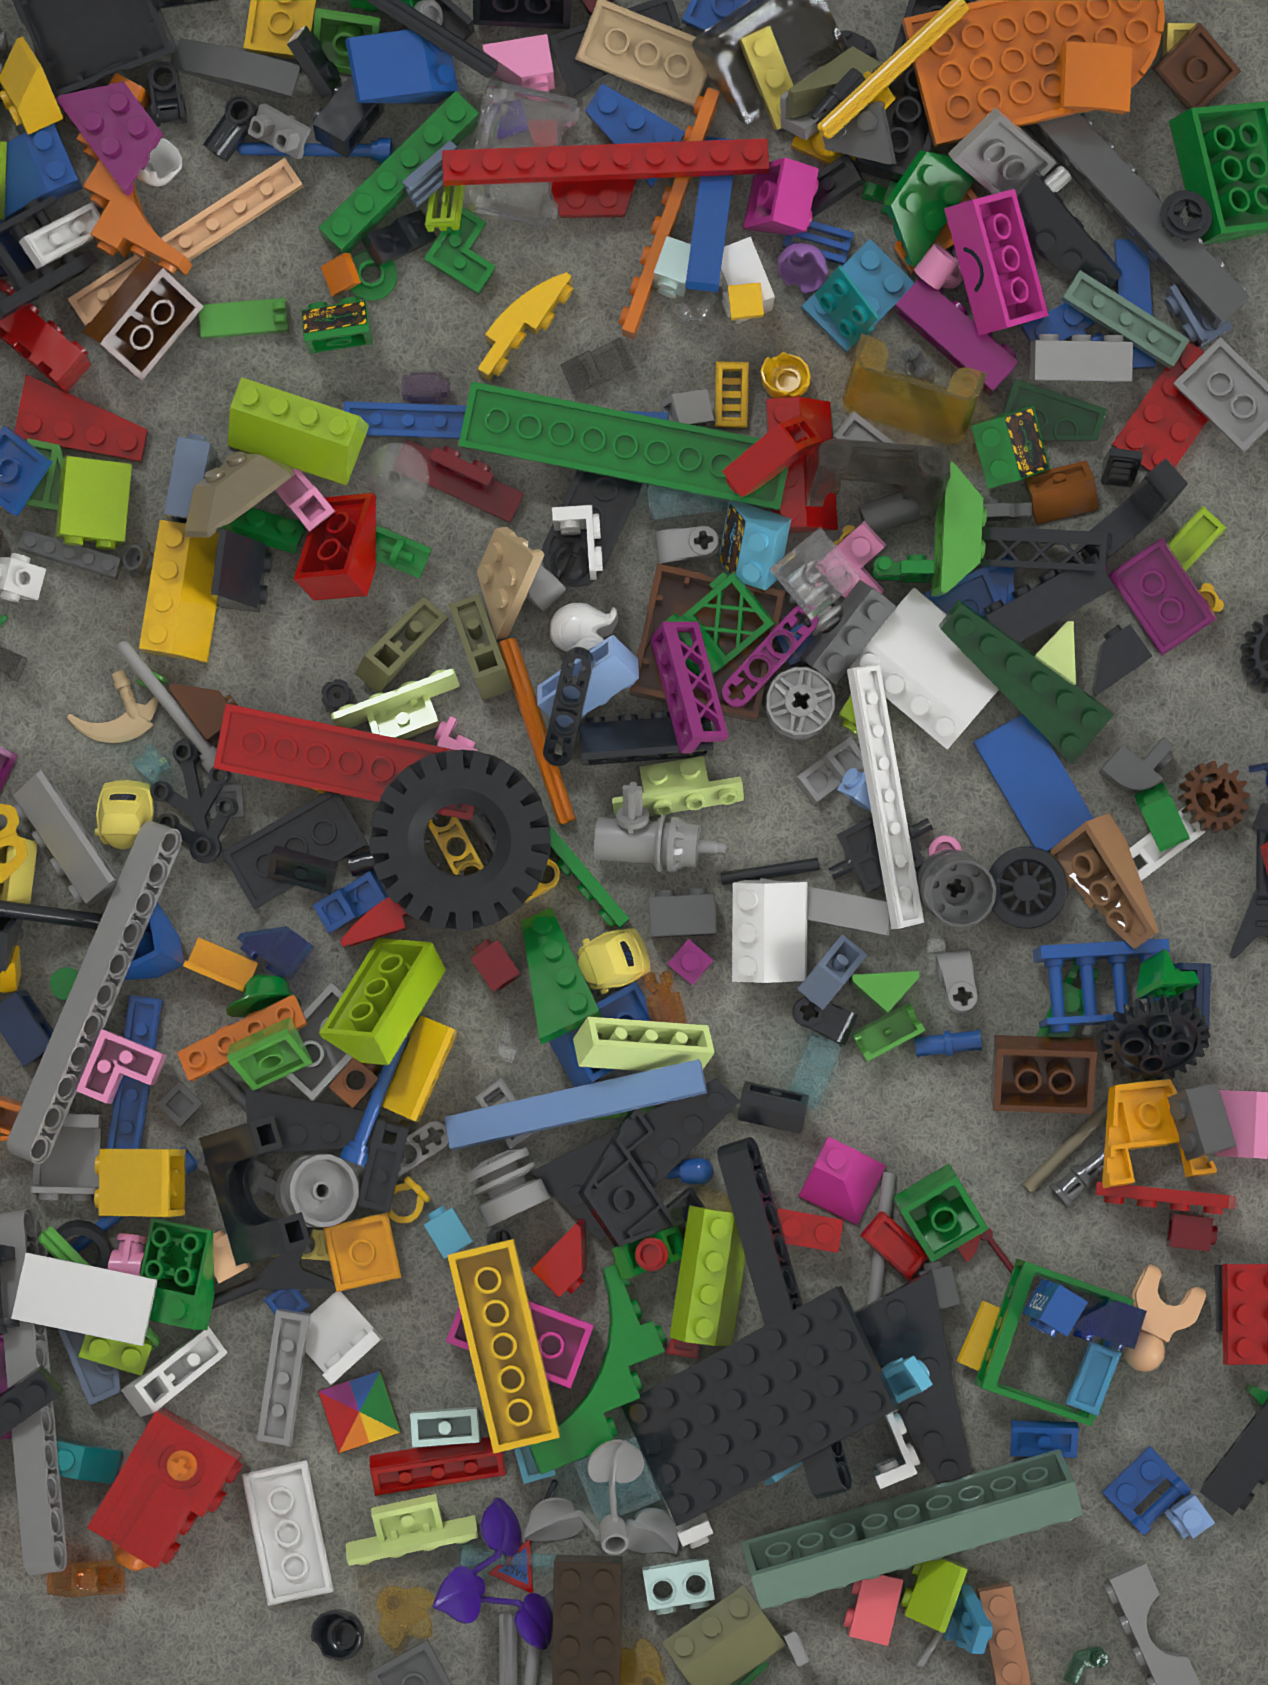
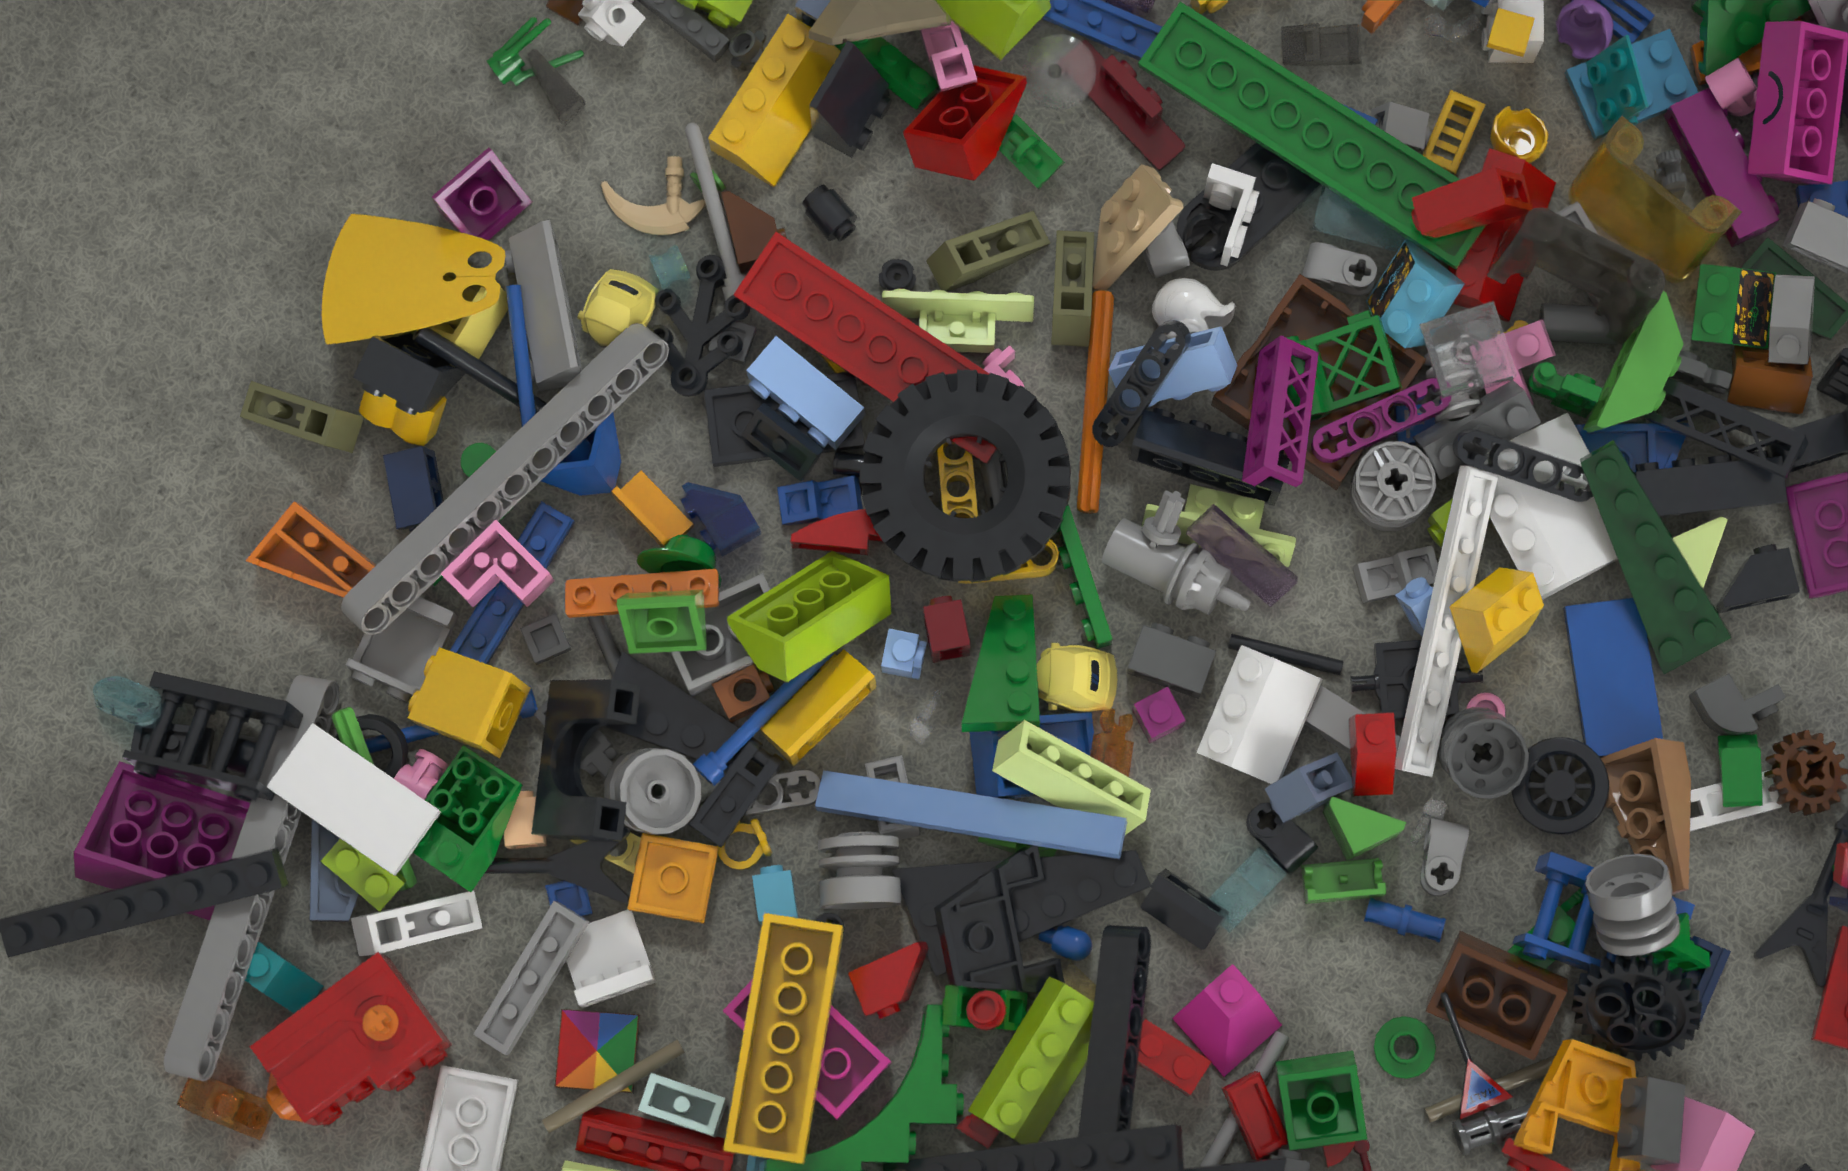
camera: 25 degrees right, 5 degrees down
(63, 885) = (520, 353): none -> blue bar
(261, 666) = (829, 213): none -> black brick
(303, 824) = (804, 394): none -> light blue brick
(384, 1434) = (613, 1086): none -> dark tan bar
(469, 998) = (903, 654): none -> light blue brick
(703, 808) = (1242, 555): none -> tile
(870, 926) = (1372, 753): none -> red slope
(897, 651) = (1525, 465): none -> black beam
(922, 774) = (1496, 614): none -> yellow slope
(976, 1131) = (1385, 1047): none -> green piece
(1058, 1151) = (1478, 1087): none -> piece
(1060, 439) = (1791, 319): none -> light grey slope
(1120, 963) = (1632, 904): none -> light grey wheel

